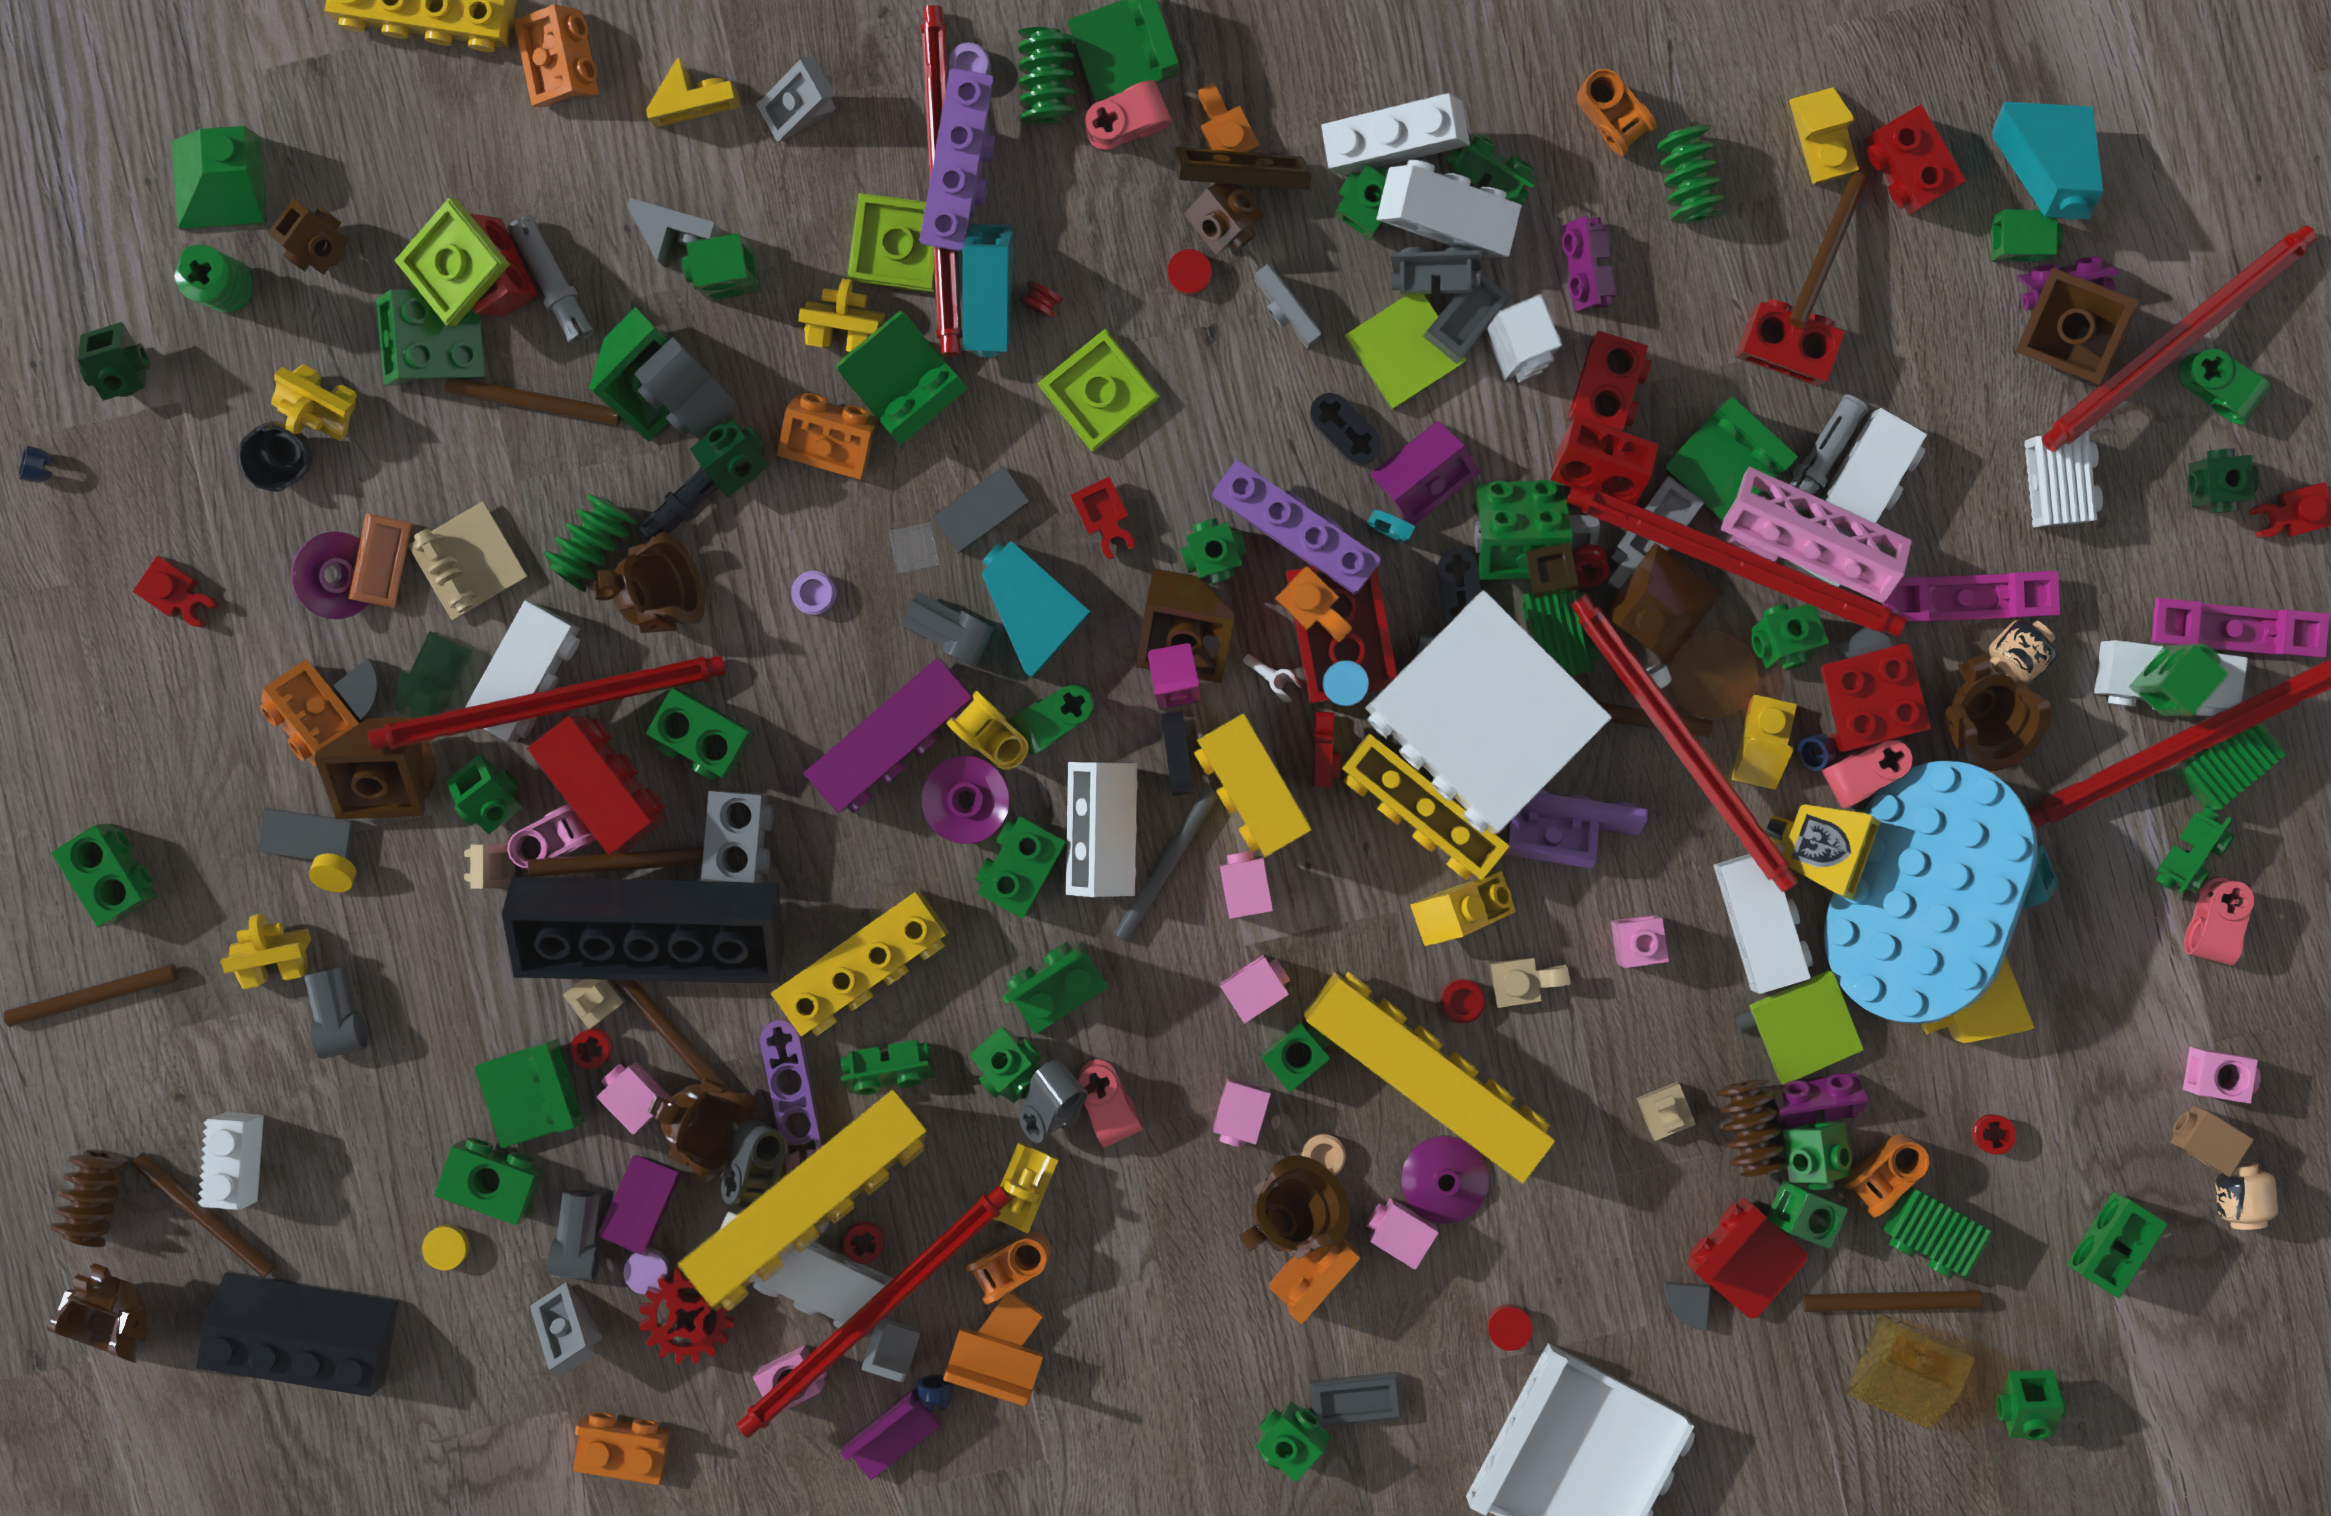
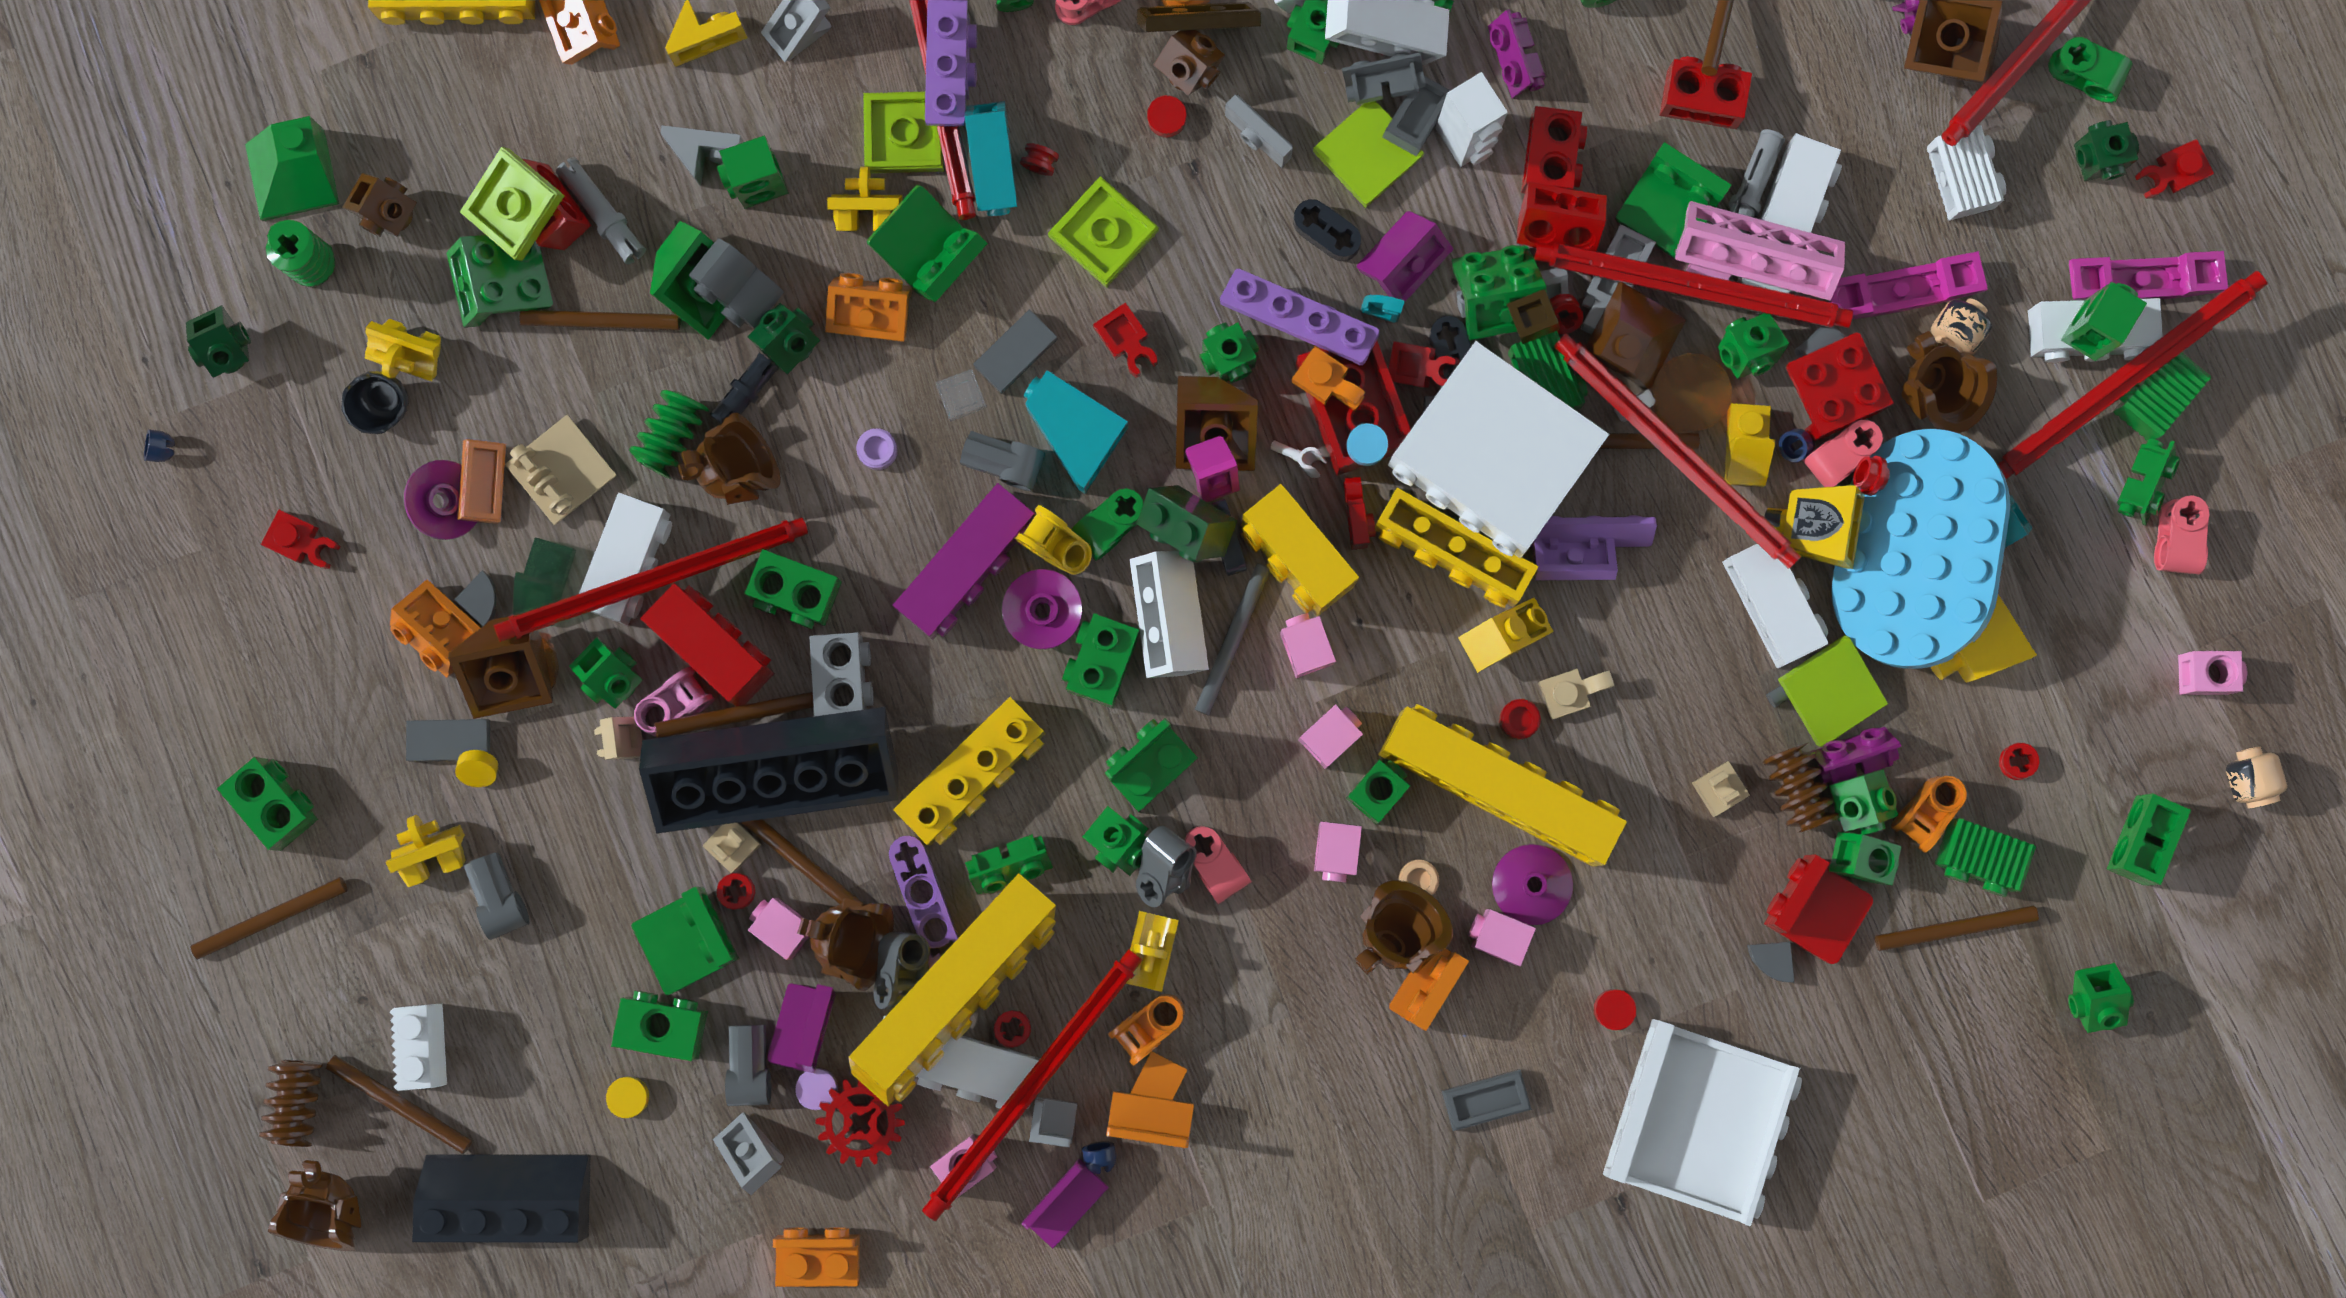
camera: 10 degrees left, 5 degrees down
(1135, 734) = (1186, 523): none -> dark green brick
(1291, 1440) = (1446, 1146): green brick -> none
(1416, 598) = (1416, 364): none -> red plate
(1639, 941) = (1669, 637): bright pink brick -> none
(1891, 803) = (1871, 475): none -> red plate
(1910, 1372) = (1985, 988): clear yellow slope -> none
(2210, 1140) = (2213, 733): medium nougat brick -> none

